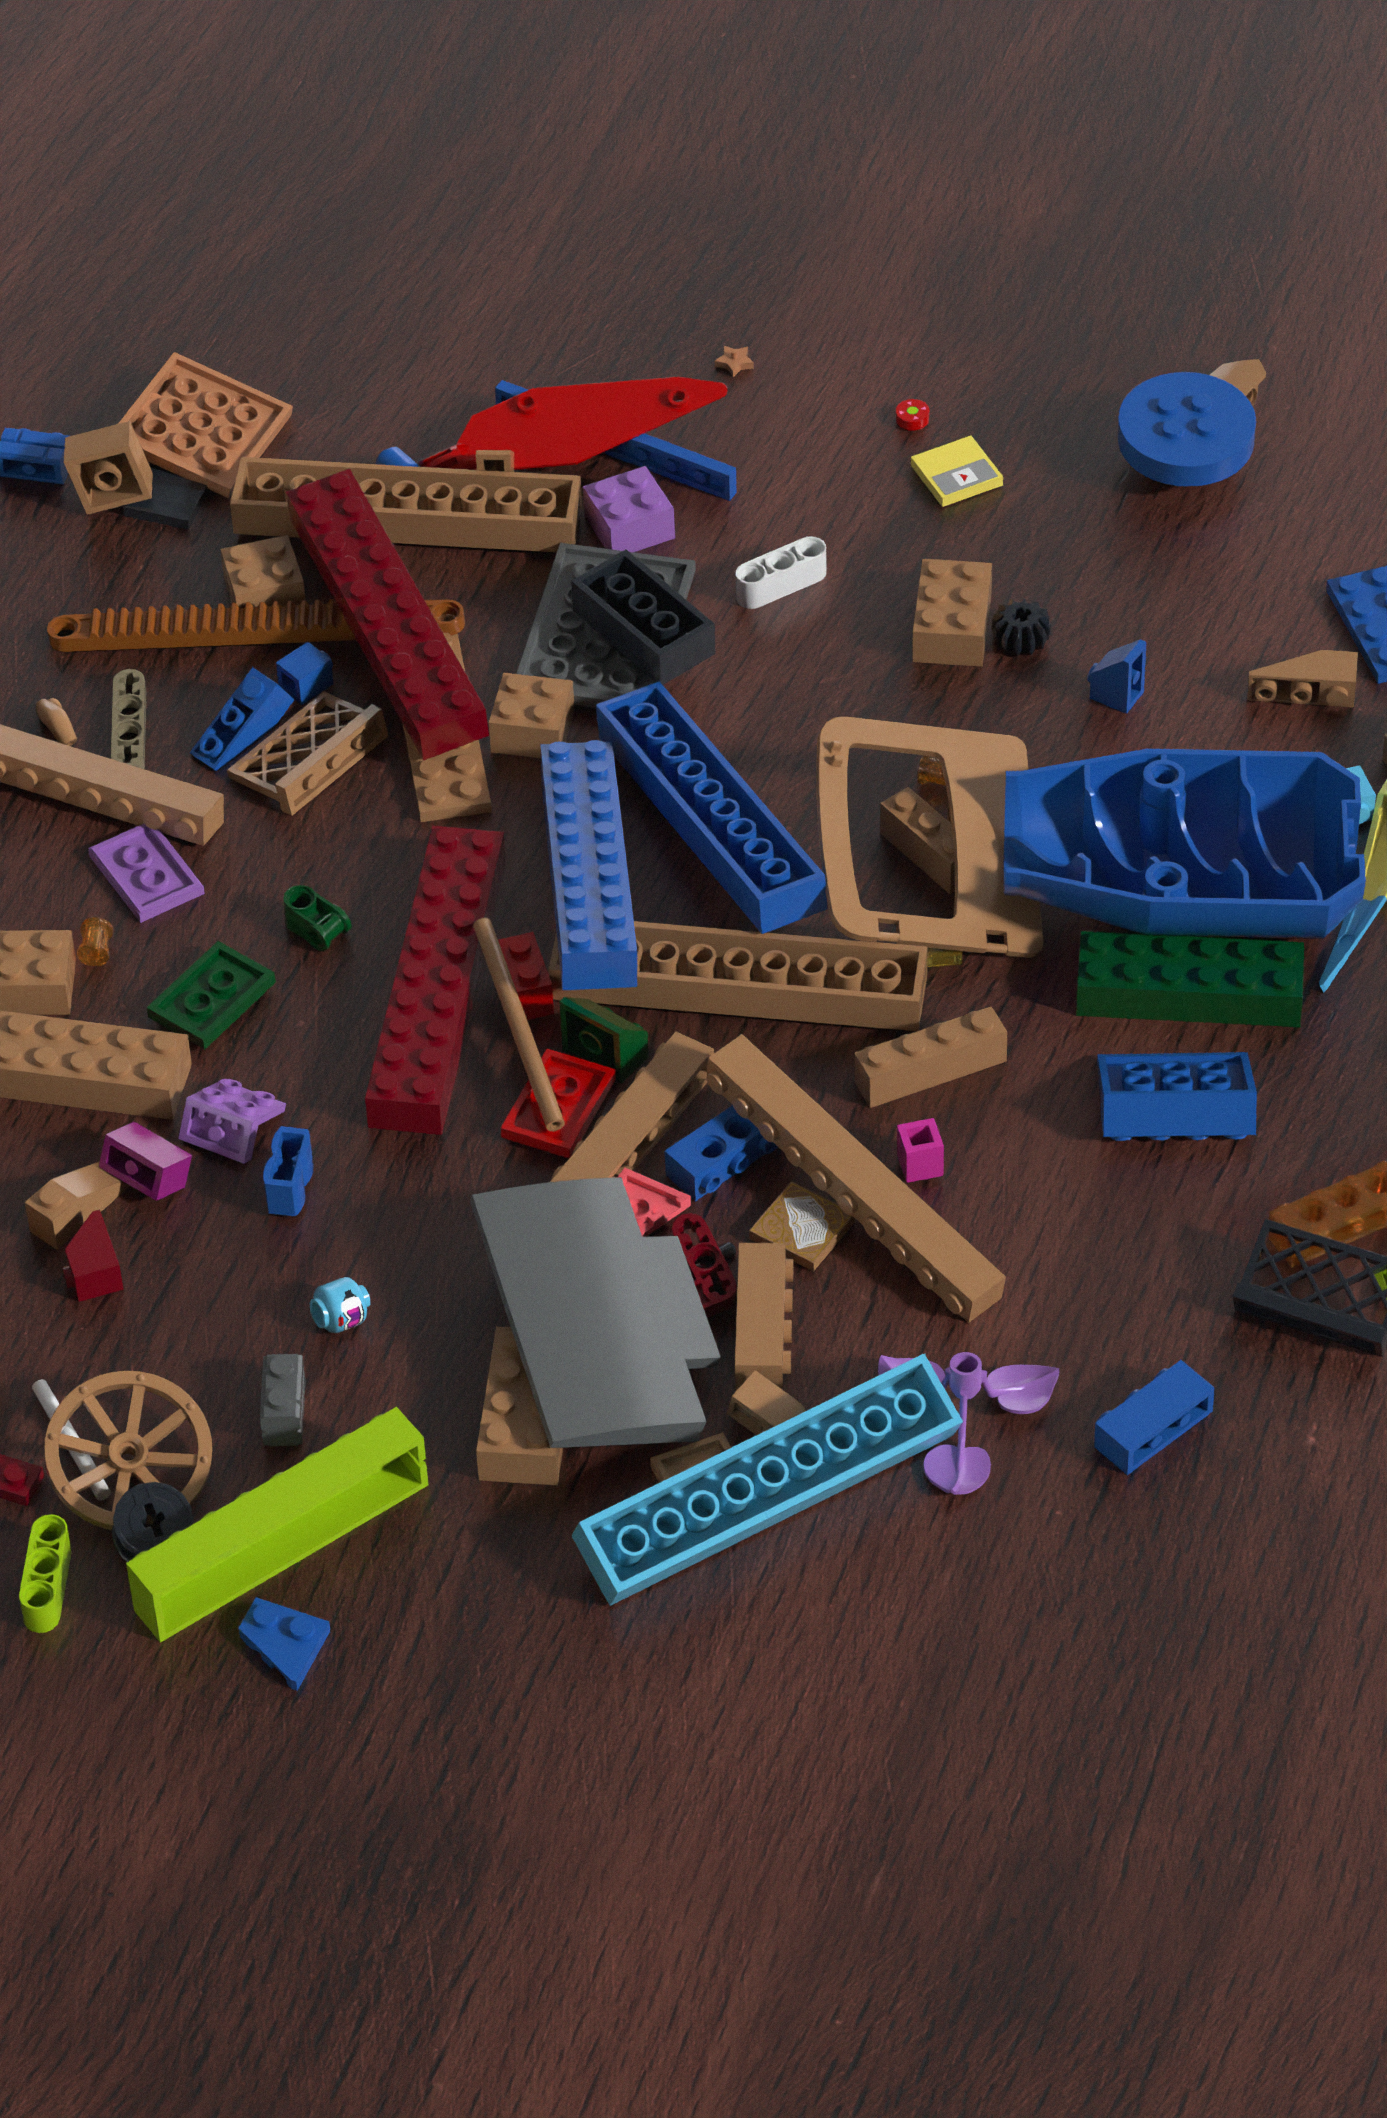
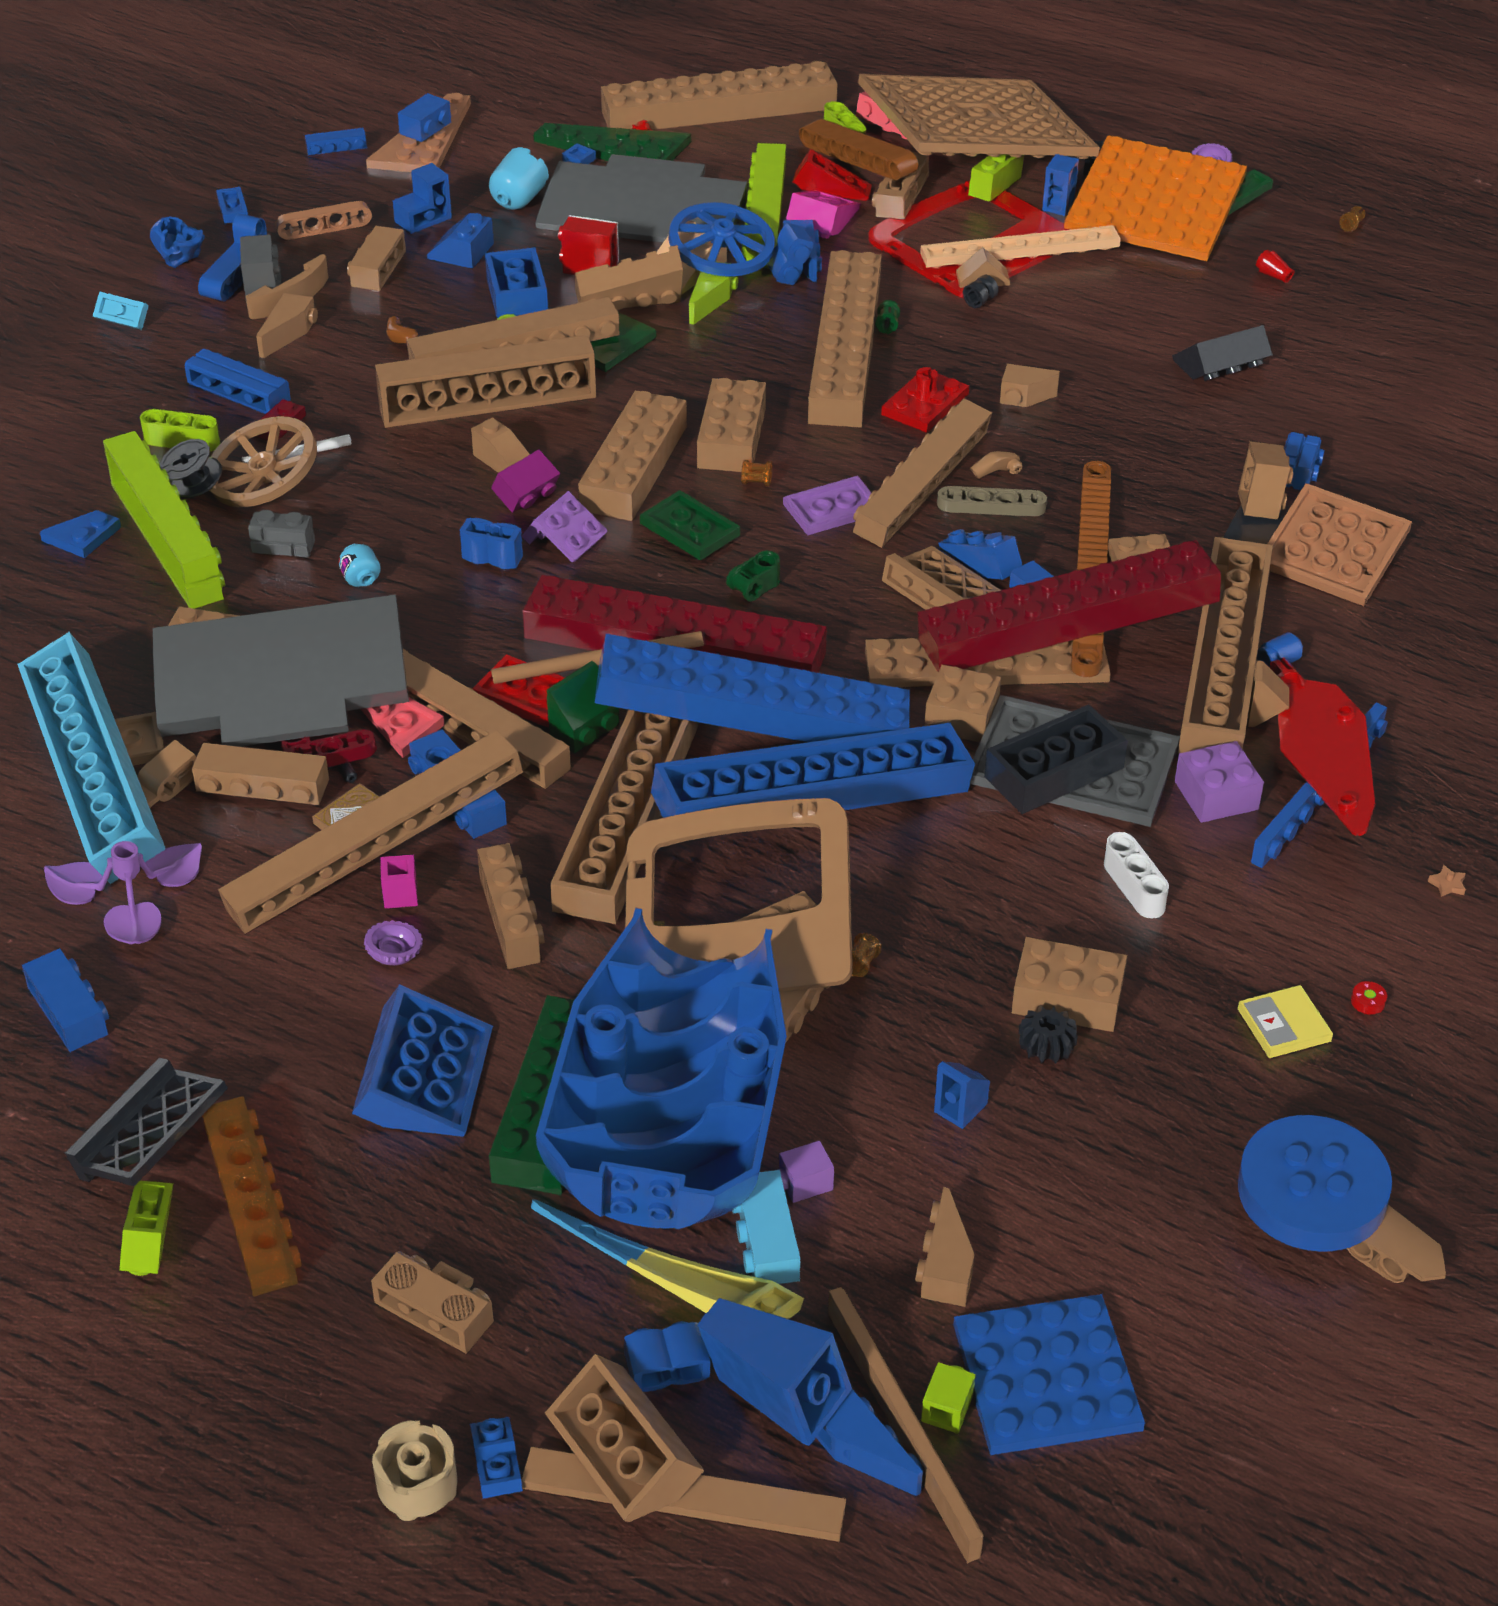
camera: 95 degrees right, 5 degrees down
(92, 1261) = (449, 460): dark red slope -> none
(1005, 1147) = (393, 942): none -> medium lavender hat

